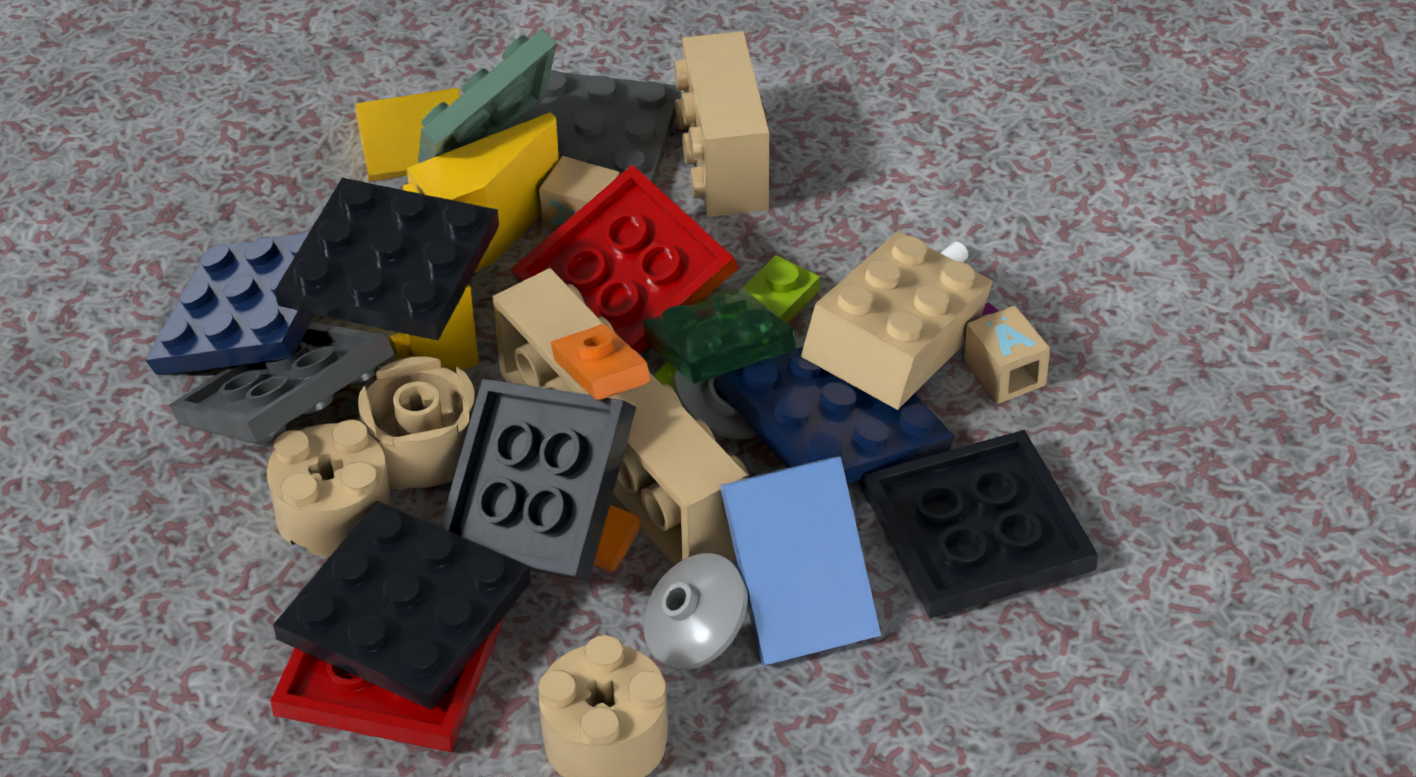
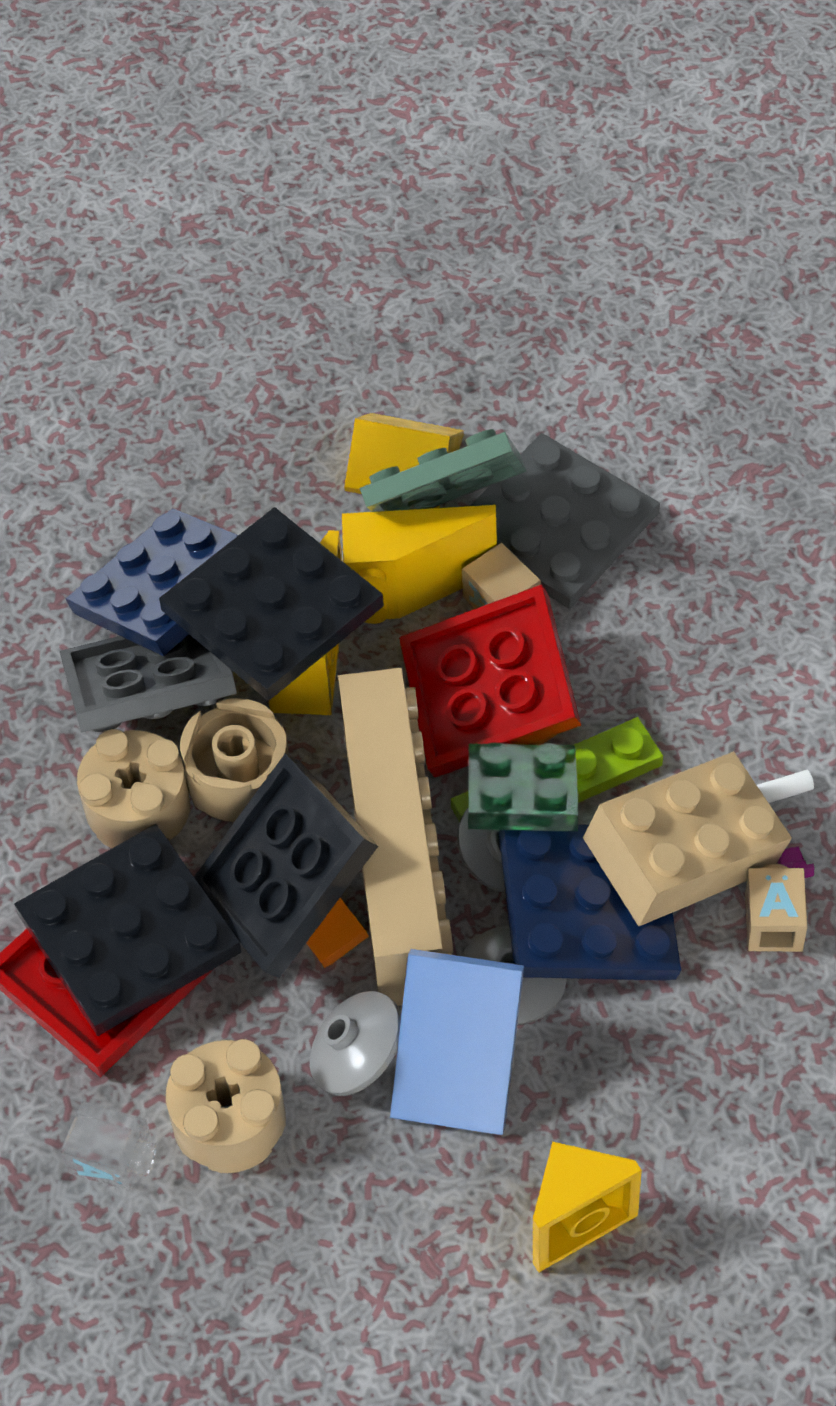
camera: 30 degrees right, 10 degrees up
(600, 361) = (373, 788): orange plate -> none
(723, 124) = (658, 566): tan brick -> none
(978, 523) = (648, 1067): black plate -> none
(1001, 640) = (581, 1201): none -> yellow slope

